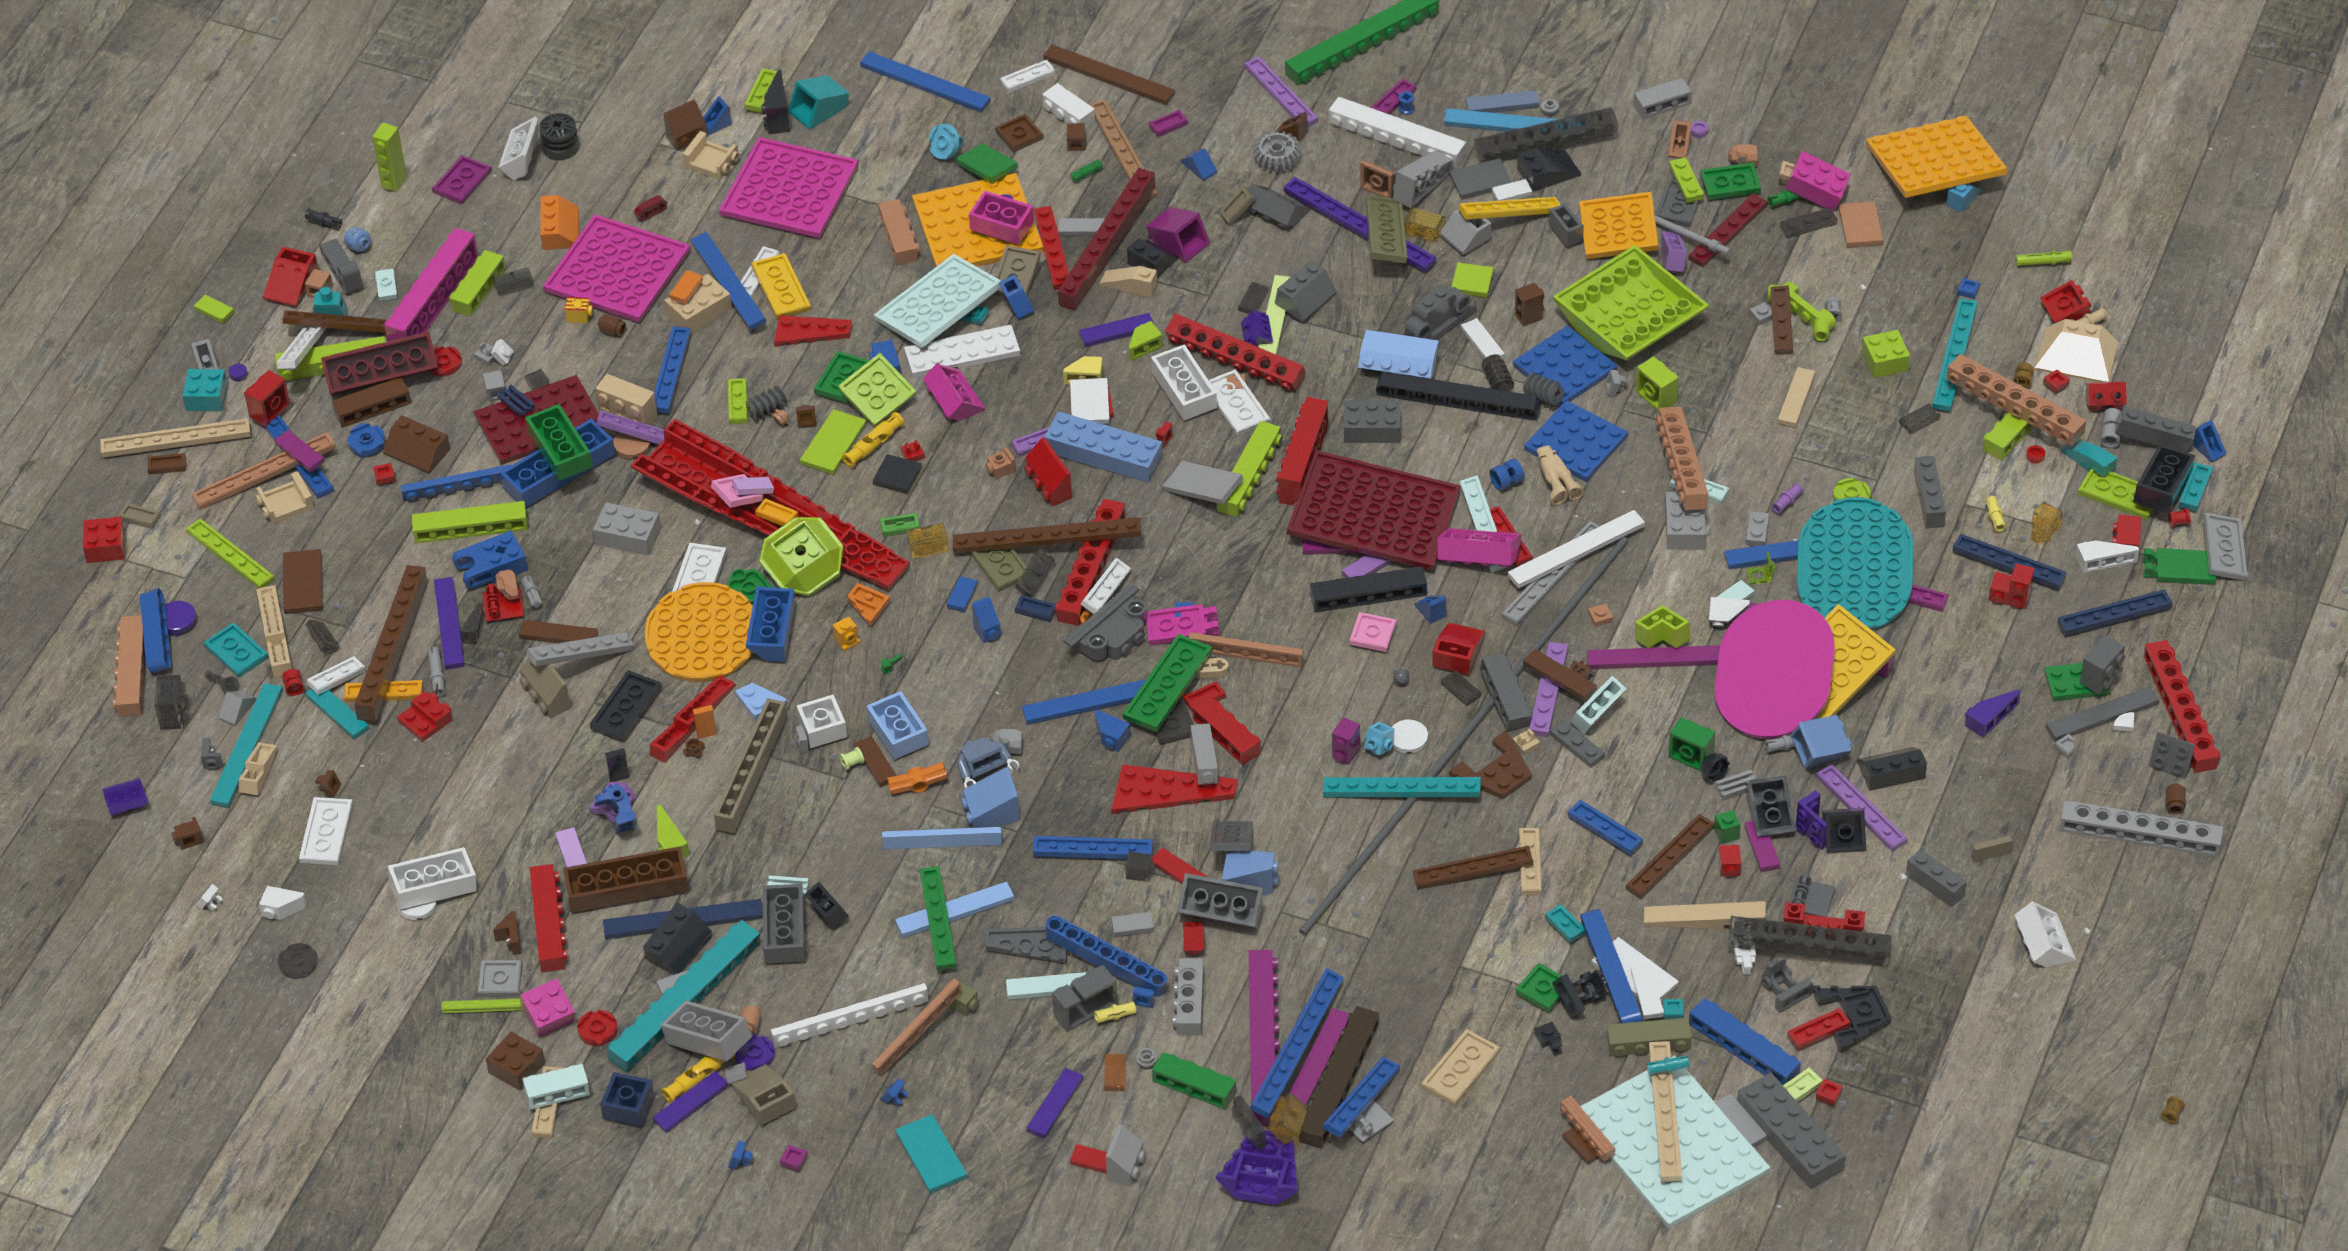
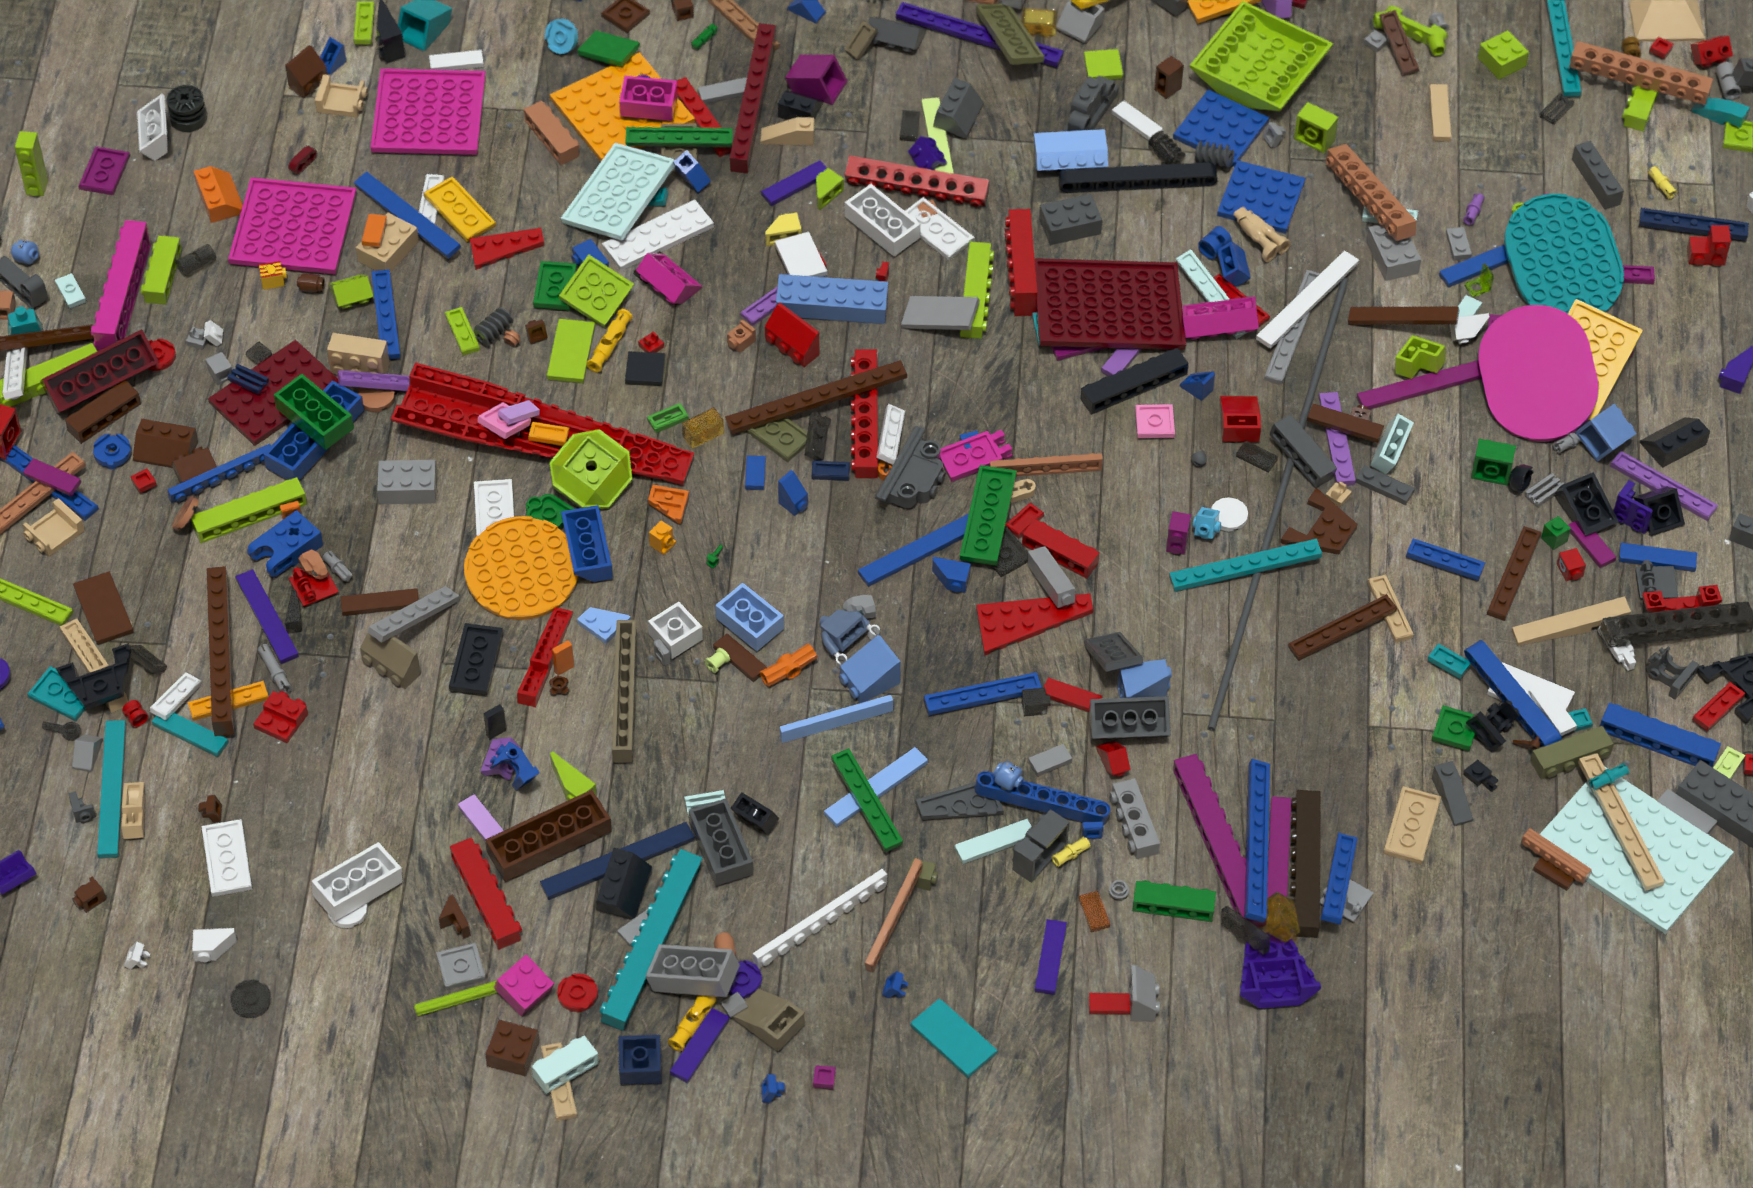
camera: 20 degrees left, 5 degrees up
(171, 702) = (22, 763): clear smoke brick -> none
(271, 648) = (100, 685): none -> black wing
(408, 511) = (185, 513): none -> nougat tile
(434, 467) = (194, 464): none -> reddish brown brick
(505, 527) = (289, 508): none -> orange tile
(646, 340) = (351, 290): none -> lime slope
(836, 145) = (457, 60): none -> white tile
(1016, 260) = (679, 136): none -> green plate
(1074, 924) = (1008, 775): none -> medium blue head
(1512, 1046) = (1452, 793): none -> dark grey slope
(1515, 498) = (1233, 264): none -> blue brick
(1600, 615) = (1353, 357): nougat plate -> none
(1612, 1019) = (1534, 744): none -> reddish brown piece
(1664, 584) = (1404, 315): none -> reddish brown tile
(1824, 873) = (1658, 556): none -> blue tile
(1851, 488) = (1525, 189): lime tile -> none
(2035, 454) = (1671, 119): red tile -> none
(2045, 521) = (1708, 179): clear yellow brick -> none

